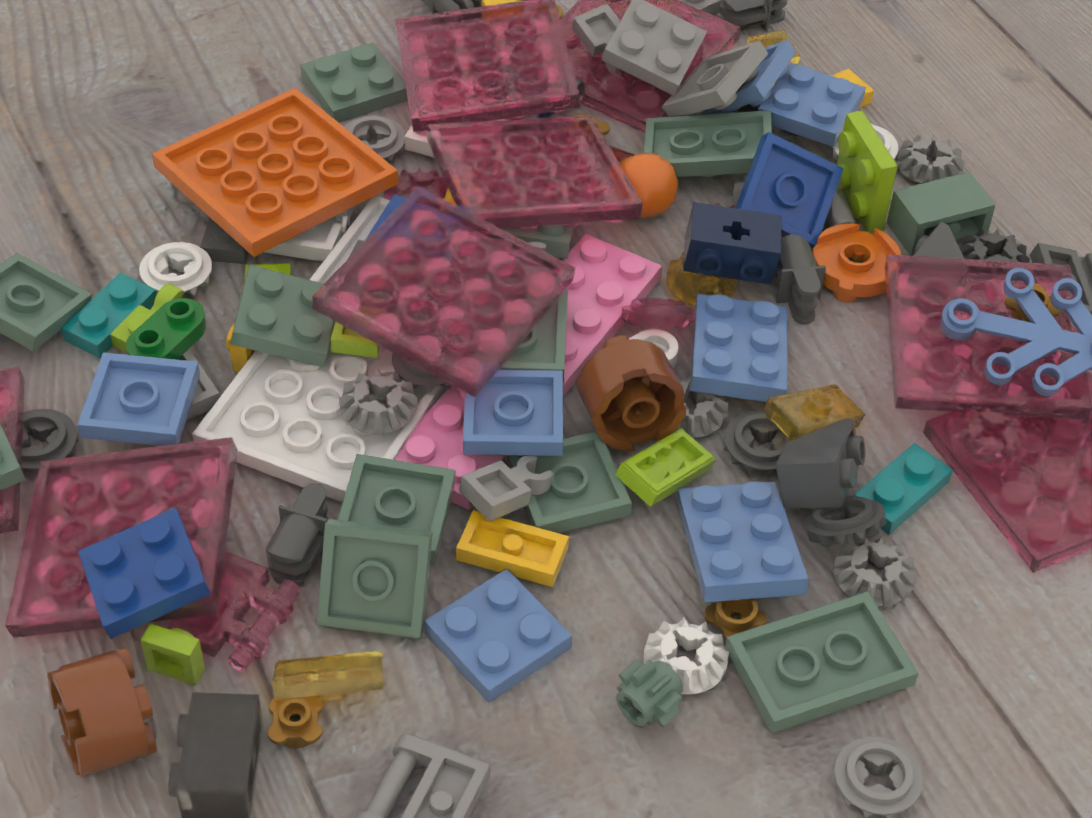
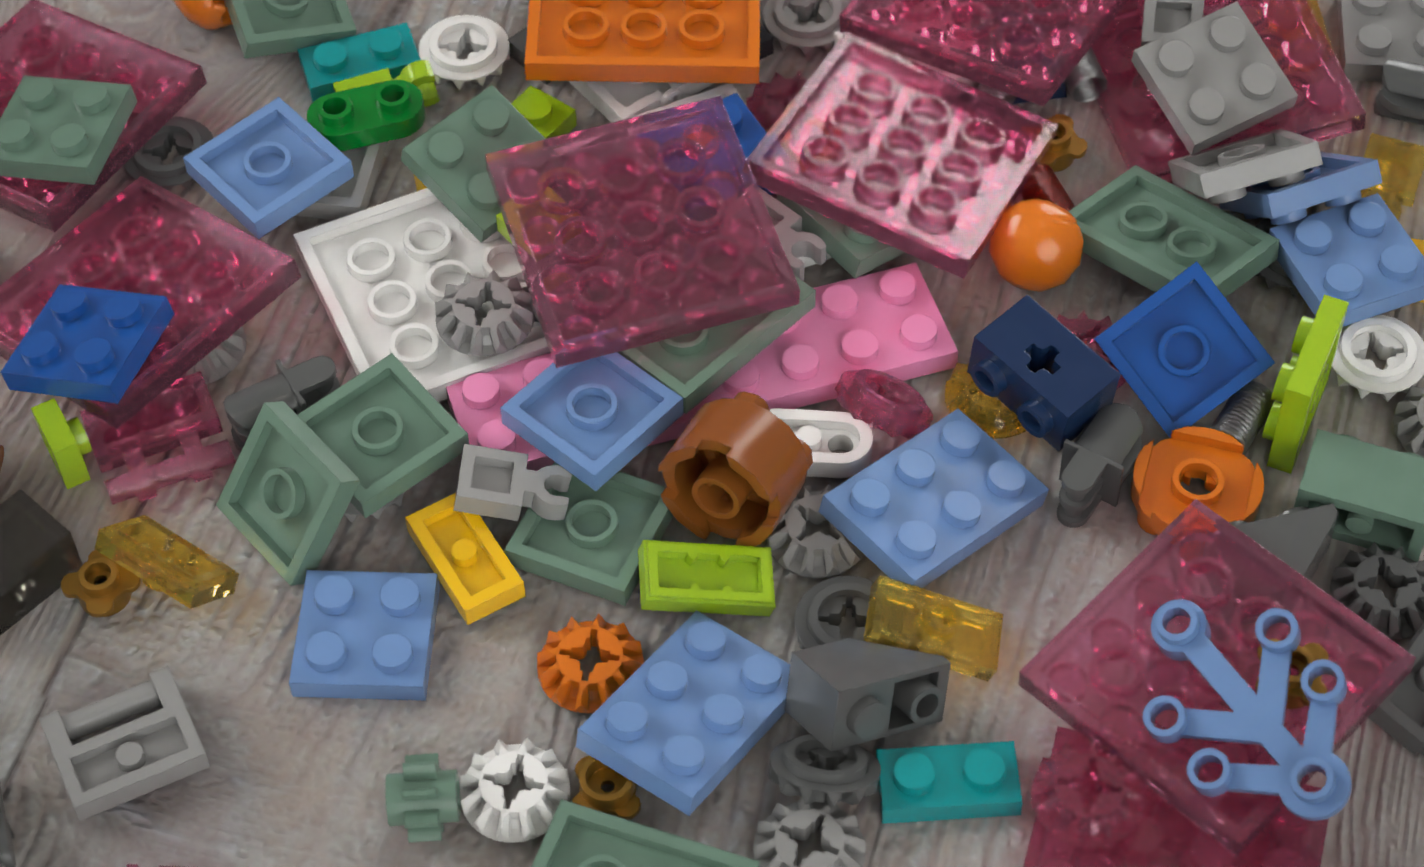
camera: 45 degrees right, 5 degrees up
(644, 575) = (561, 670): none -> orange gear

